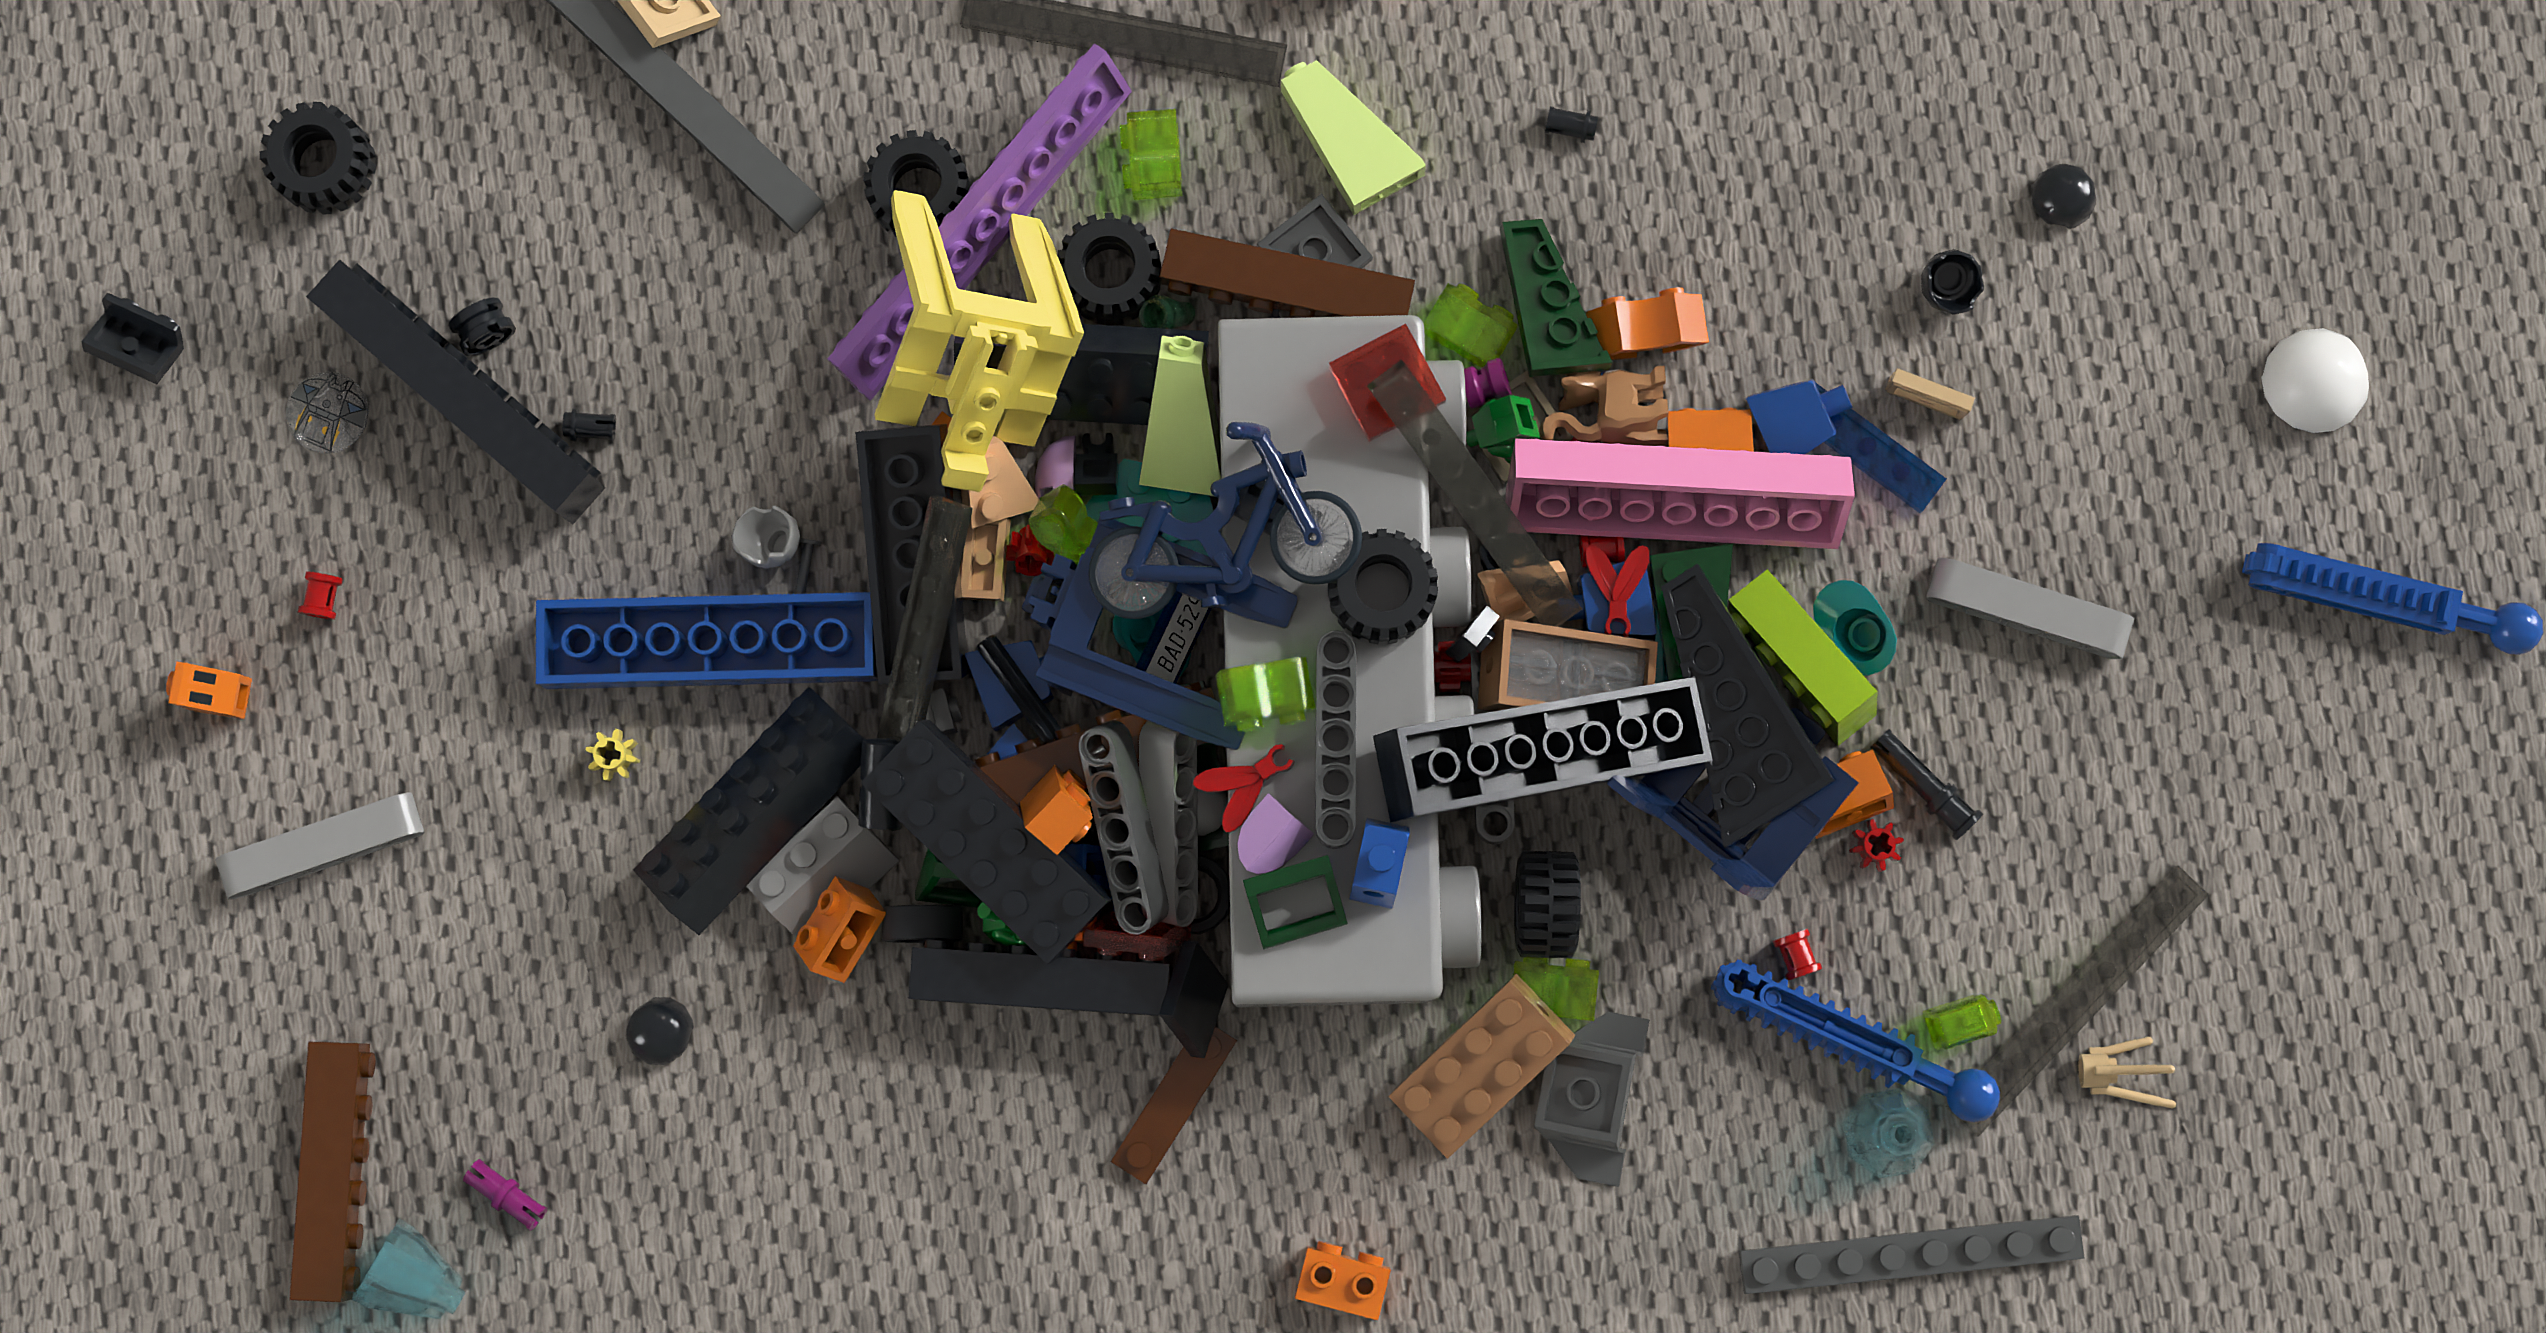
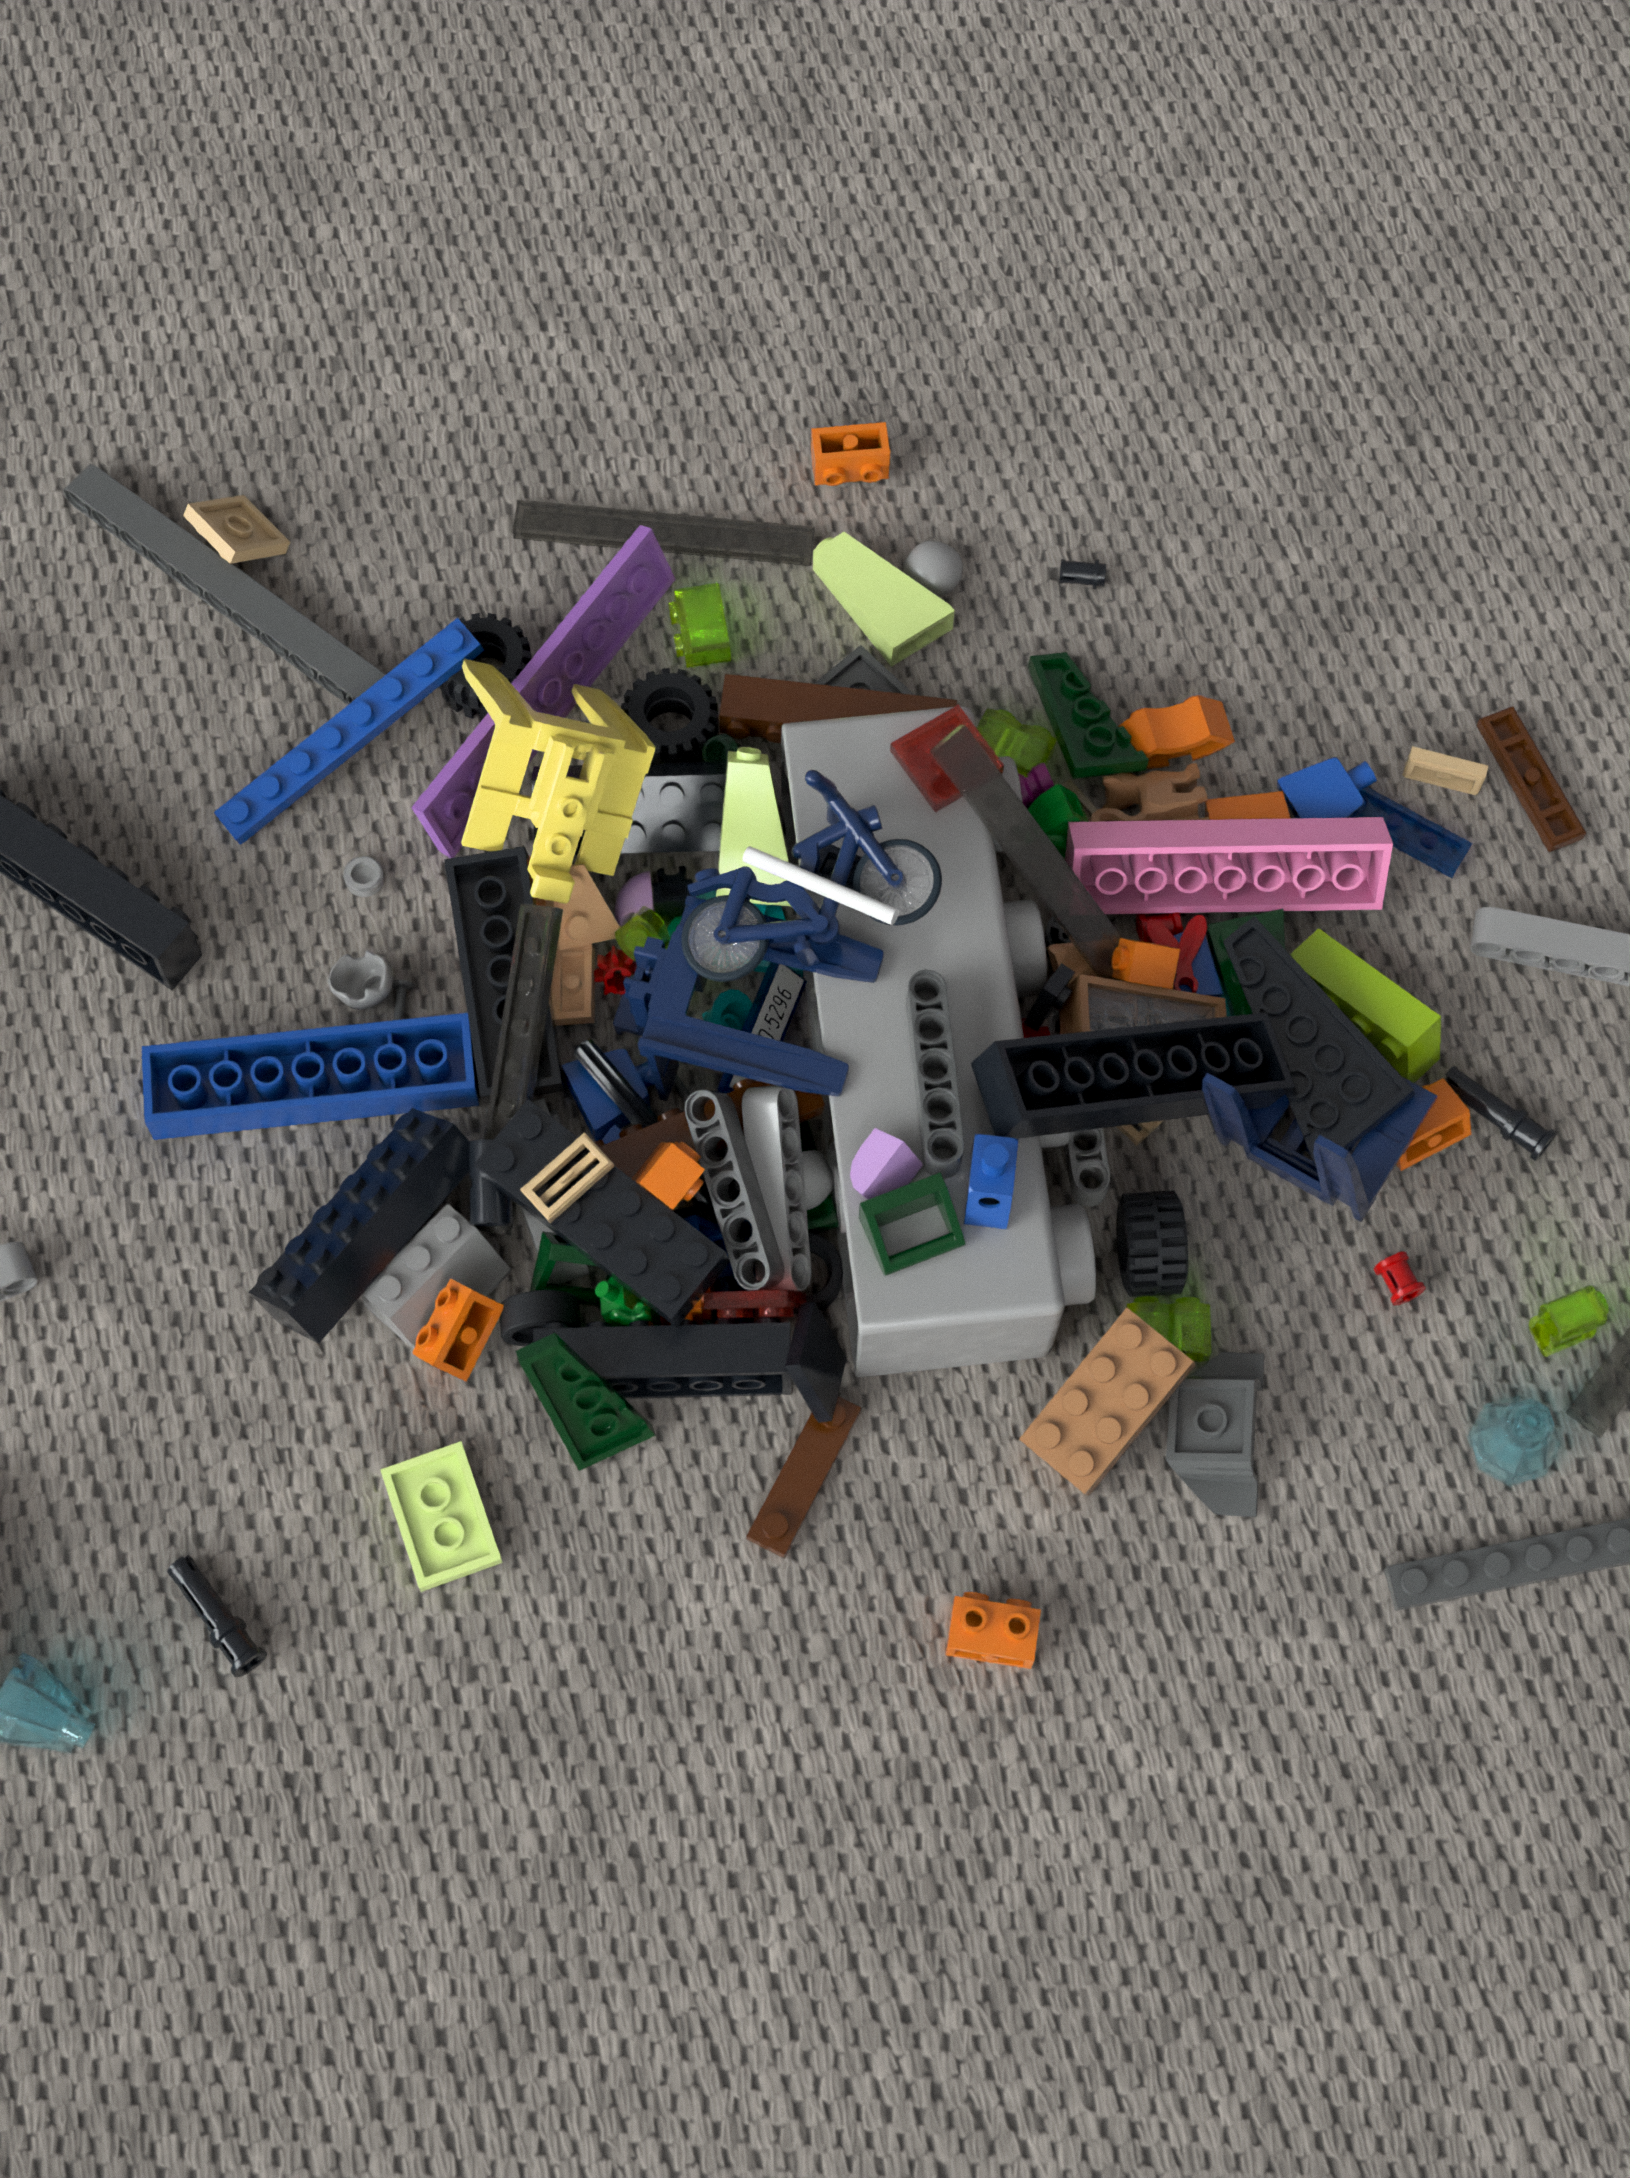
camera: 10 degrees left, 15 degrees down
(481, 326) = (79, 815): black wheel -> none
(504, 1194) = (132, 1624): magenta pin -> none
(588, 425) = (185, 897): black pin -> none
(595, 1209) = (226, 1631): none -> black pin
(615, 765) = (229, 1198): light yellow gear -> none
(659, 1031) = (281, 1451): black hair -> none
(770, 253) = (348, 731): none -> blue plate
(776, 414) = (364, 876): none -> light grey tile
(811, 1113) = (441, 1516): none -> yellowish green plate
(953, 1026) = (580, 1403): none -> dark green wing
(982, 790) = (578, 1189): none -> tan tile
(1235, 535) = (821, 885): none -> white bar
(1247, 782) = (852, 1122): red piece -> none
(1265, 692) = (862, 1035): clear neon green brick -> none
(1395, 623) = (967, 962): black tyre -> none
(1410, 105) = (934, 566): none -> light grey hair
(1577, 603) = (1145, 963): none -> orange brick
(1856, 625) = (1412, 966): teal piece -> none
(1888, 843) = (1455, 1181): red gear -> none
(1952, 281) = (1449, 674): black hair -> none
(1969, 1093) = (1464, 1348): blue gear -> none
(2021, 409) = (1531, 779): none -> reddish brown plate
(2064, 195) = (1539, 598): black hair -> none

